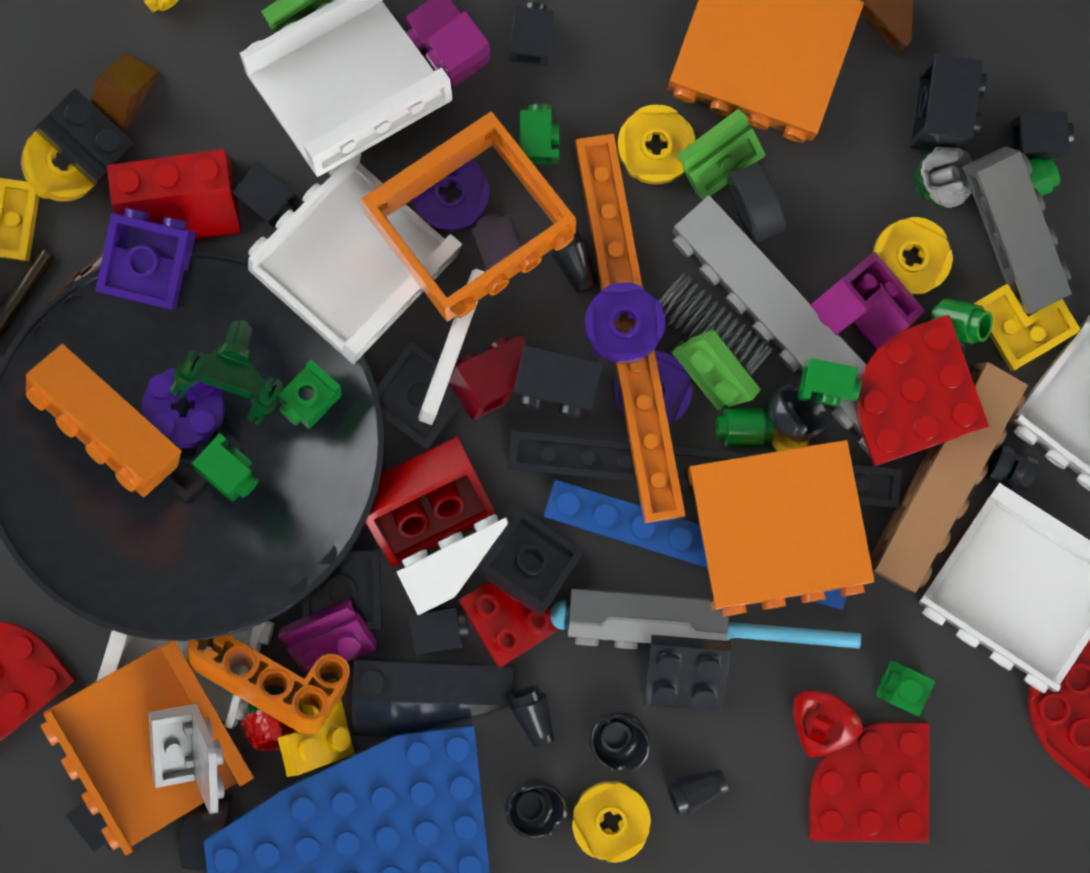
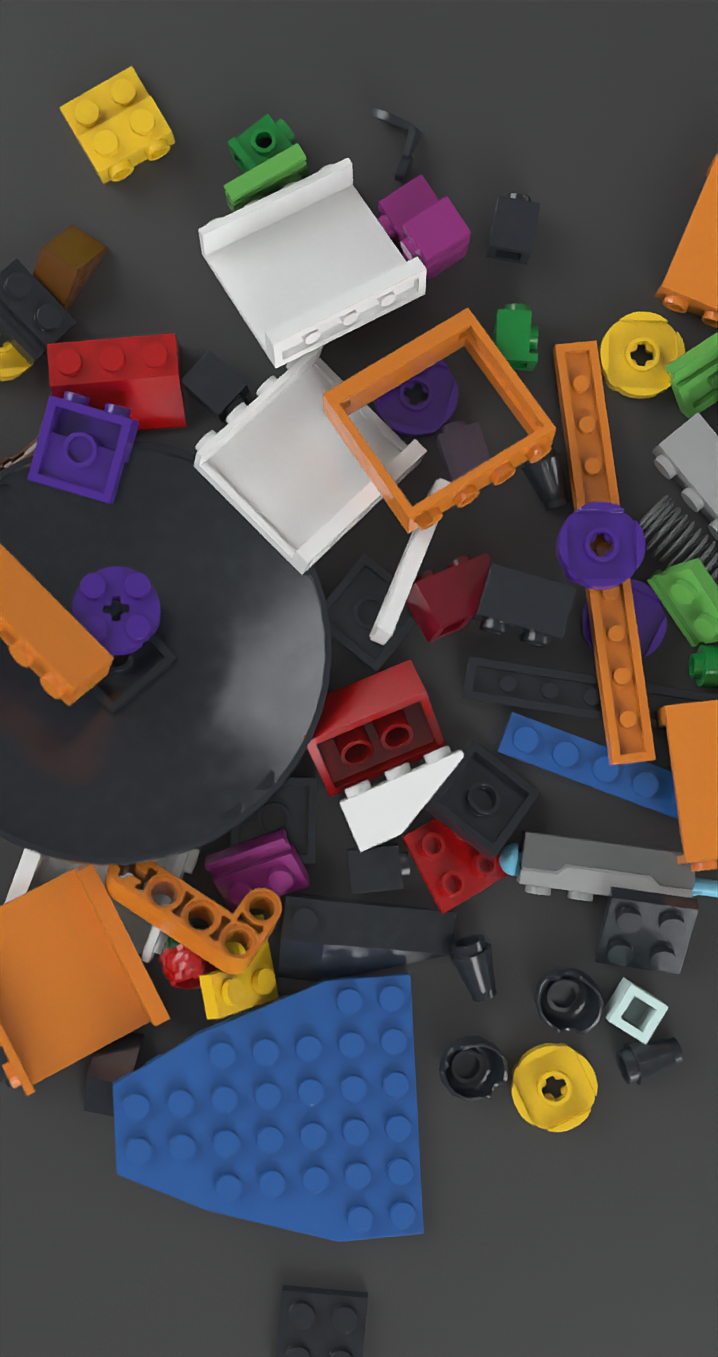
camera: 10 degrees right, 0 degrees up
(185, 752) = (99, 985): light grey bracket -> none
(225, 469) = (160, 680): green brick -> none
(231, 371) = (170, 573): dark green axle -> none
(308, 412) = (248, 622): green brick -> none
(680, 746) = (634, 1010): none -> light aqua brick

